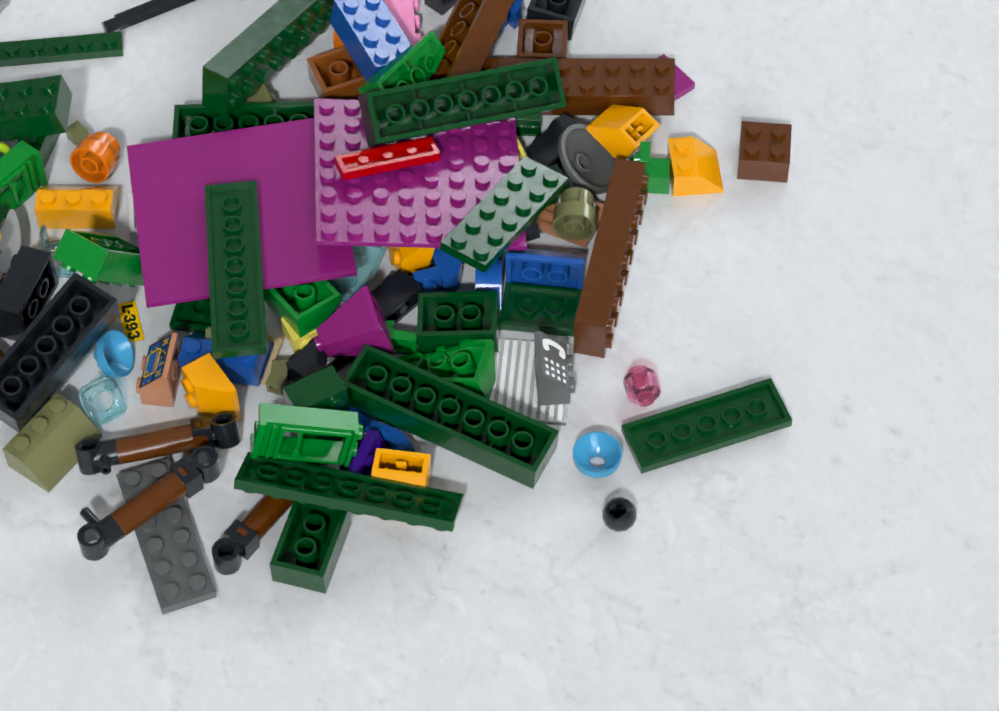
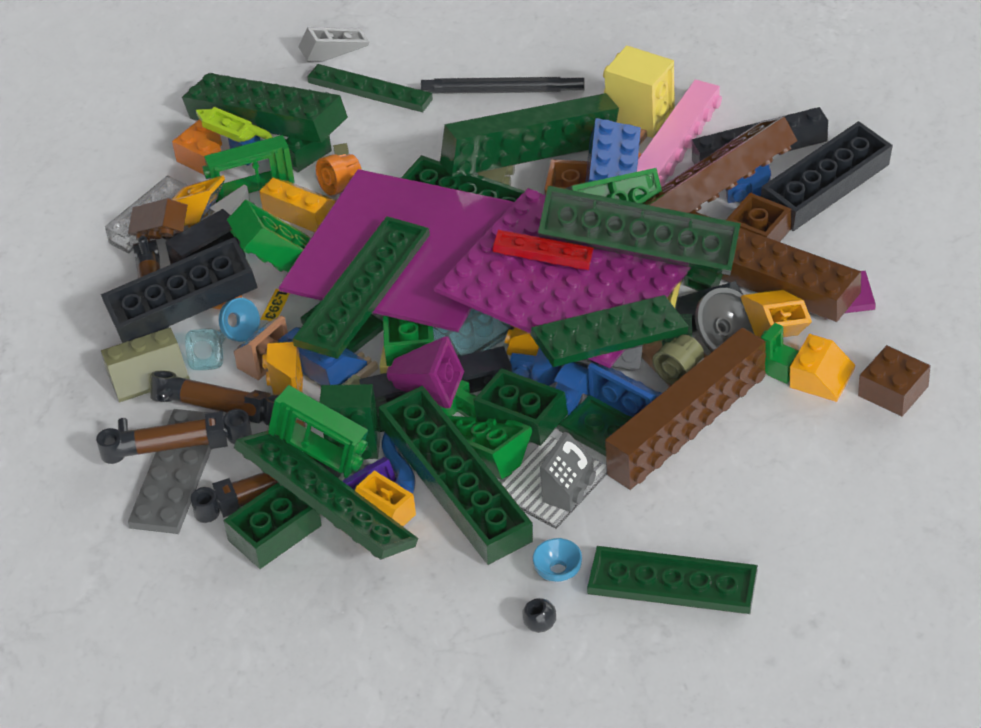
camera: 35 degrees right, 10 degrees down
(642, 384) = (639, 522): clear pink head -> none

